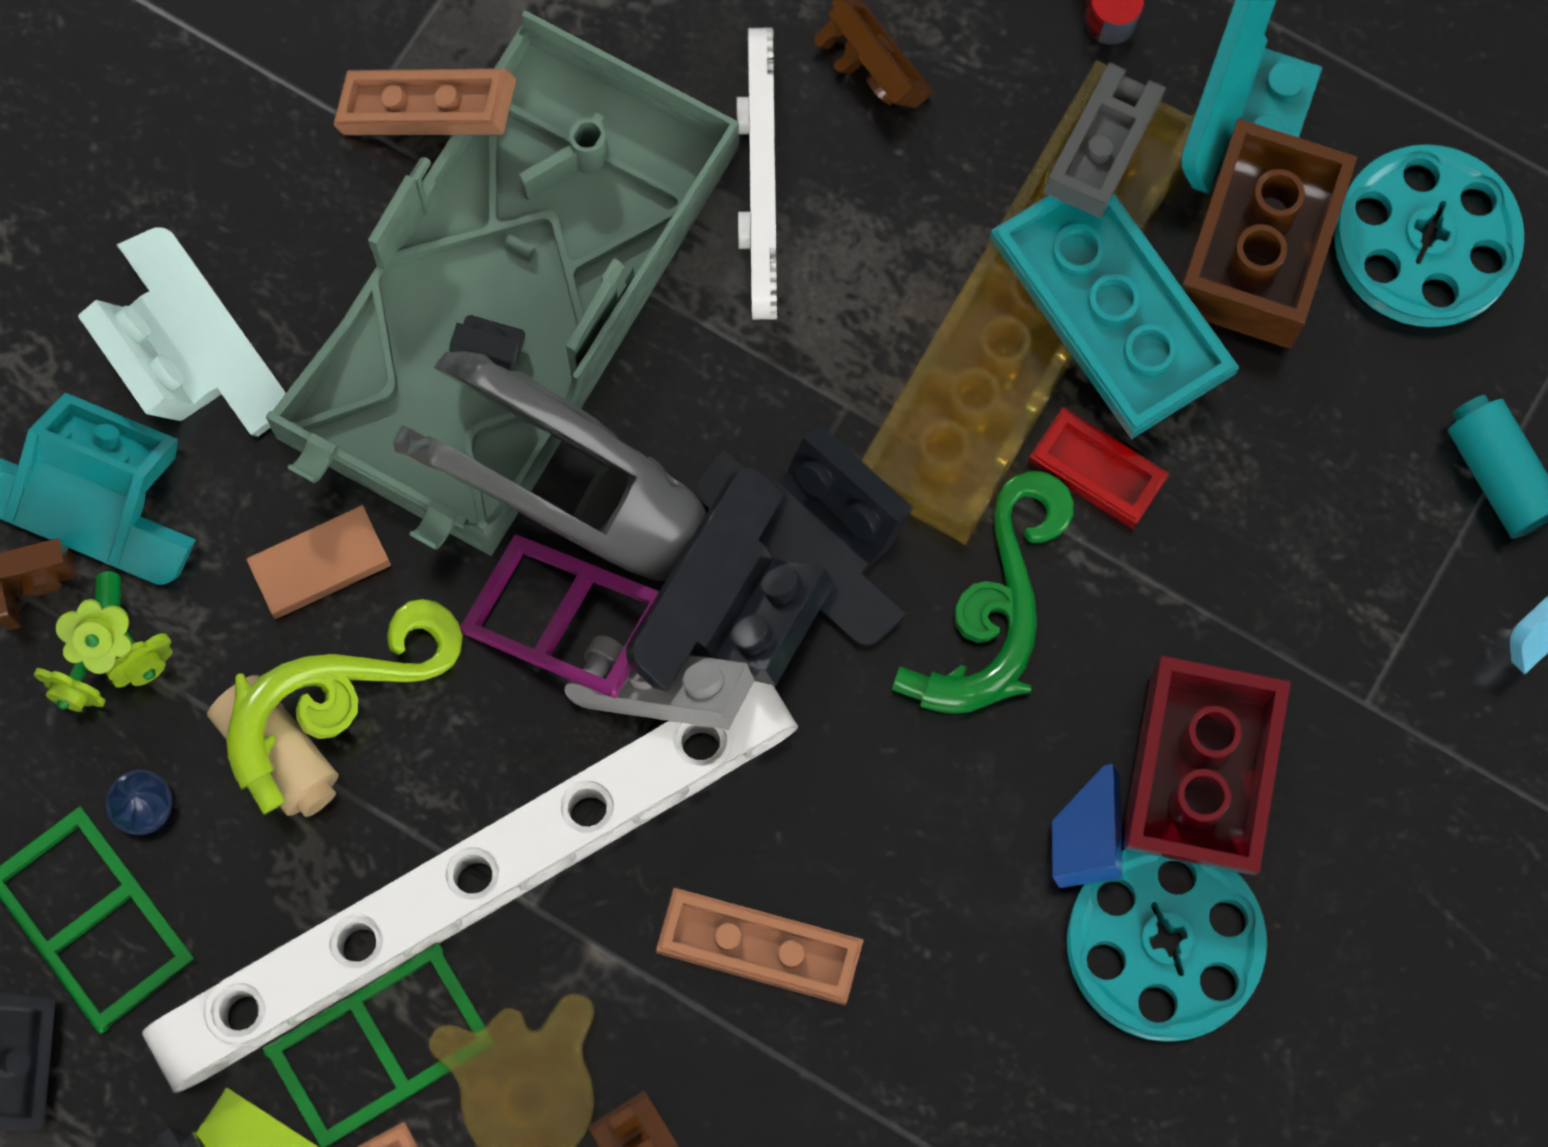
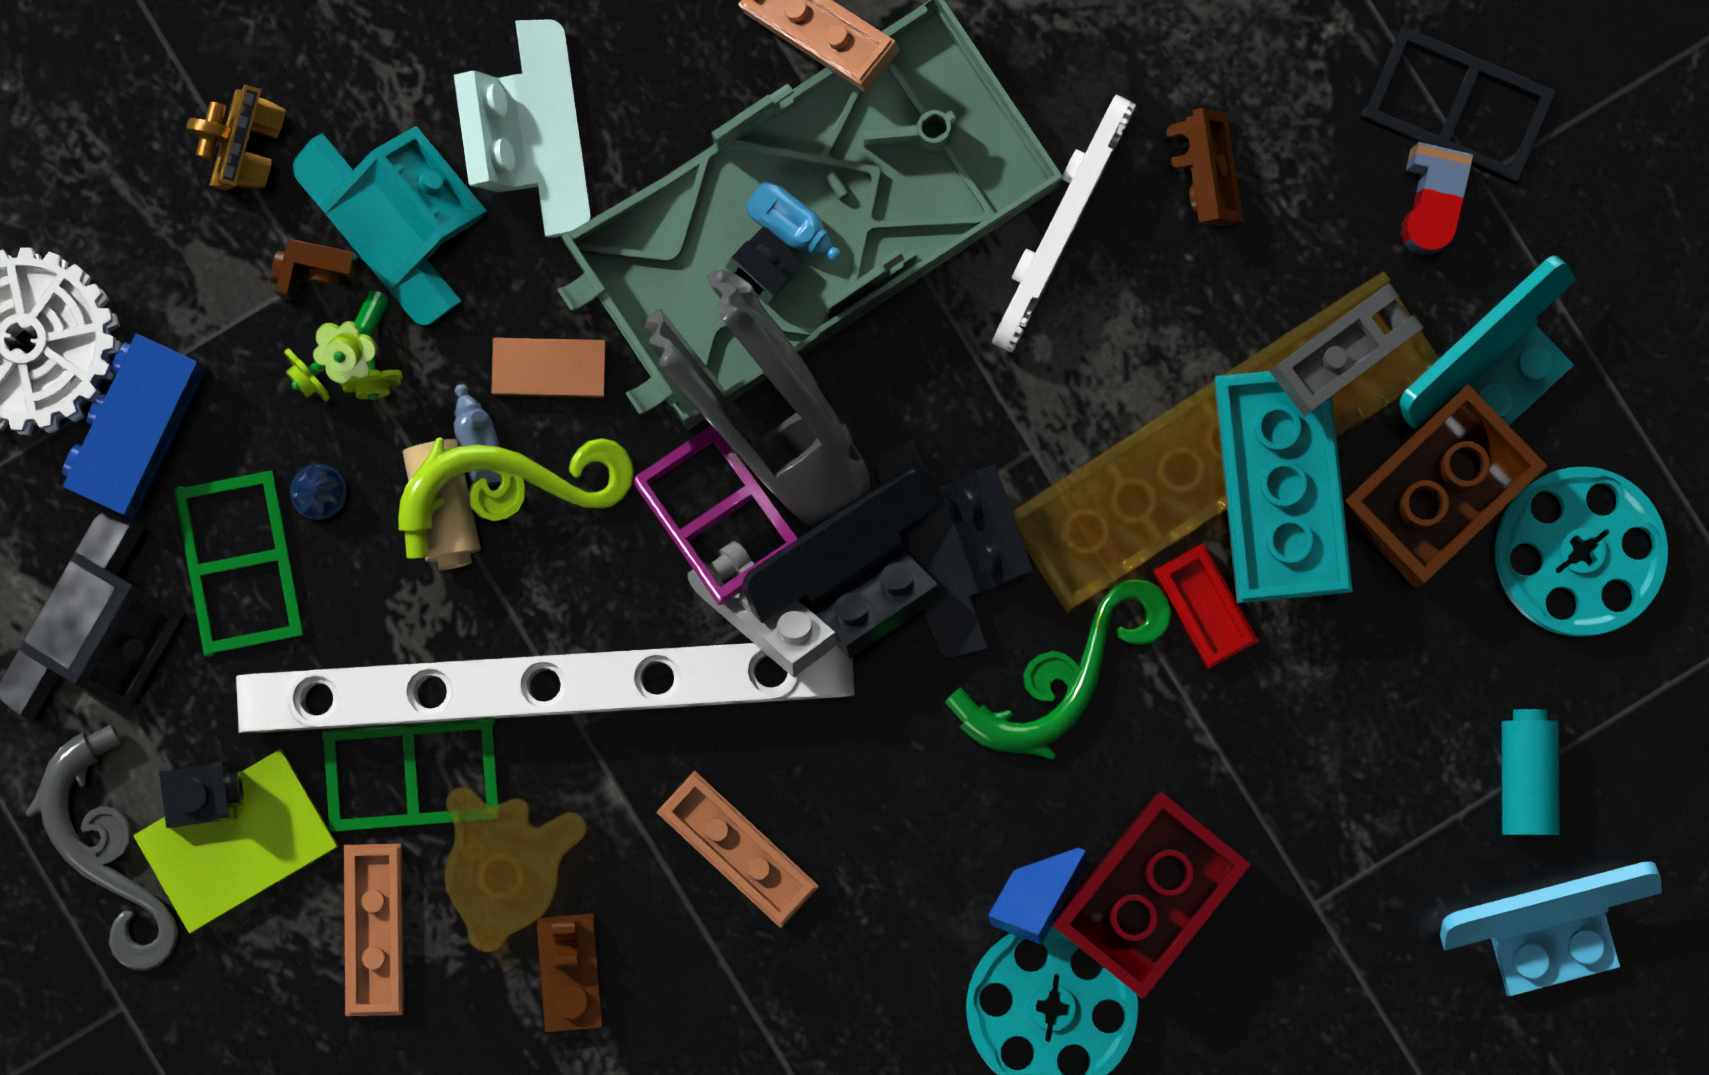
camera: 30 degrees right, 10 degrees up
(267, 652) = (474, 427): none -> sand blue piece
(490, 298) = (790, 220): none -> dark azure piece

